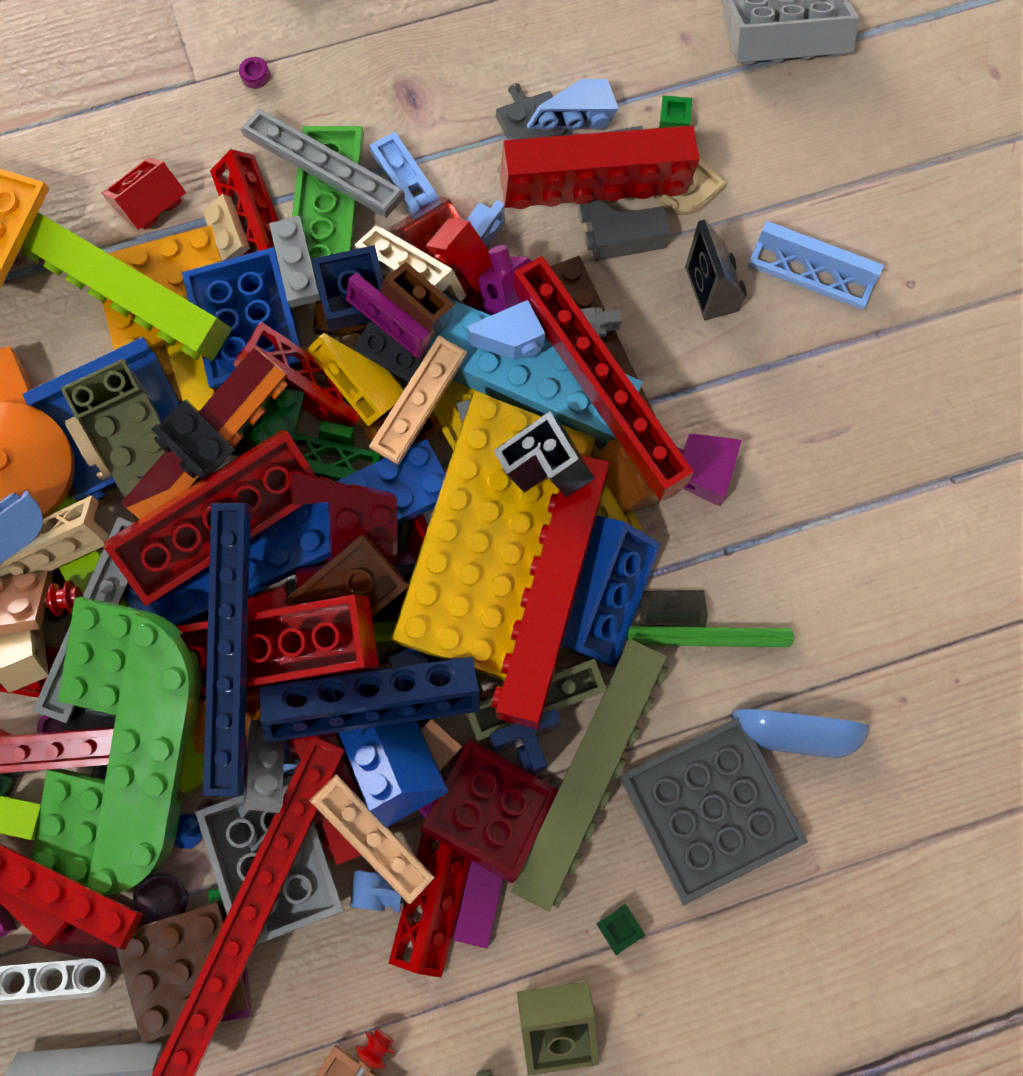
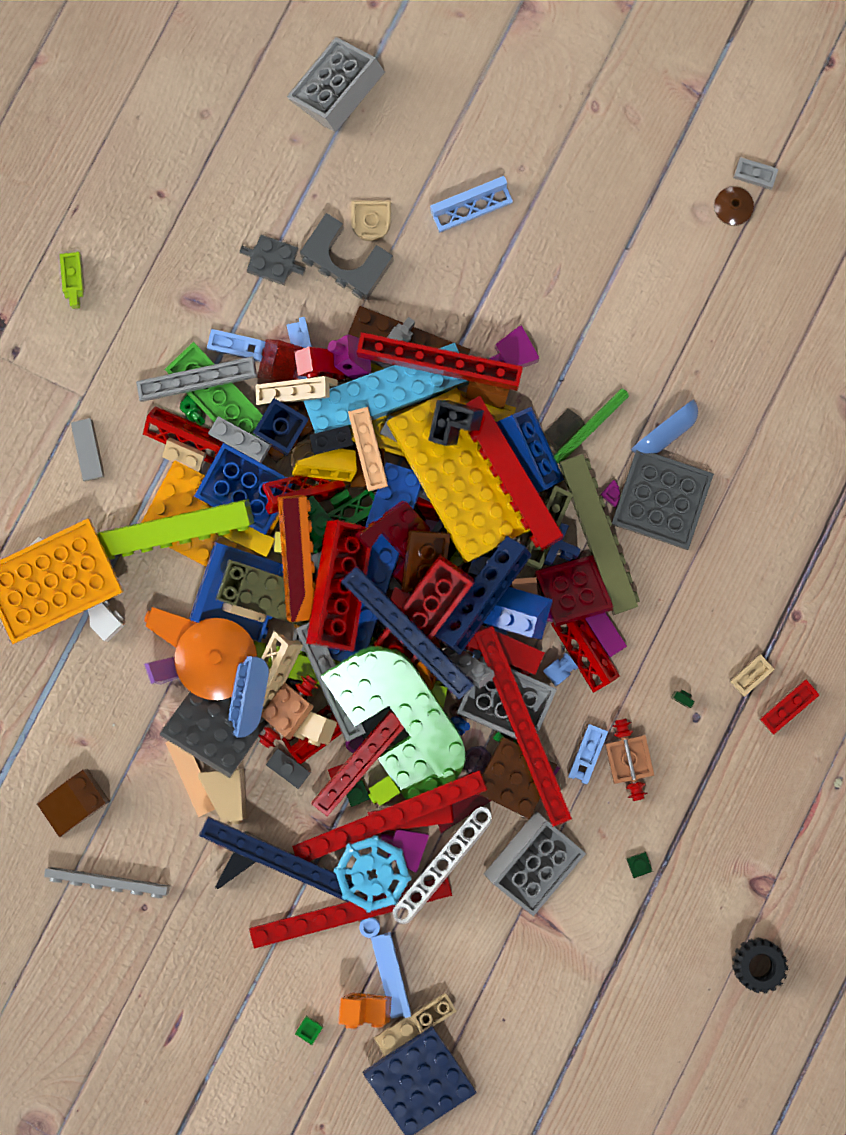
camera: 40 degrees left, 10 degrees up
(137, 133) = (87, 449): none -> light grey tile
(145, 193) = (125, 475): red slope -> none
(192, 440) = (297, 564): black bracket -> none
(254, 72) = (107, 364): magenta tile -> none
(283, 195) = (194, 412): none -> green piece
(302, 1035) = (588, 753): none -> light blue plate
(372, 839) = (540, 649): light nougat tile -> none
(387, 316) = (317, 425): magenta tile -> none
(418, 298) = (325, 407): reddish brown brick -> none
(509, 333) = (379, 379): light blue slope -> none
(558, 1028) = (685, 647): olive slope -> none
(581, 105) = (287, 227): light blue slope -> none
(598, 166) = (334, 259): red brick -> none
(620, 929) = (672, 584): dark green plate -> none
(656, 741) = (612, 494): none -> magenta tile
(675, 111) = (331, 187): green plate -> none
(713, 274) = (432, 256): black slope -> none

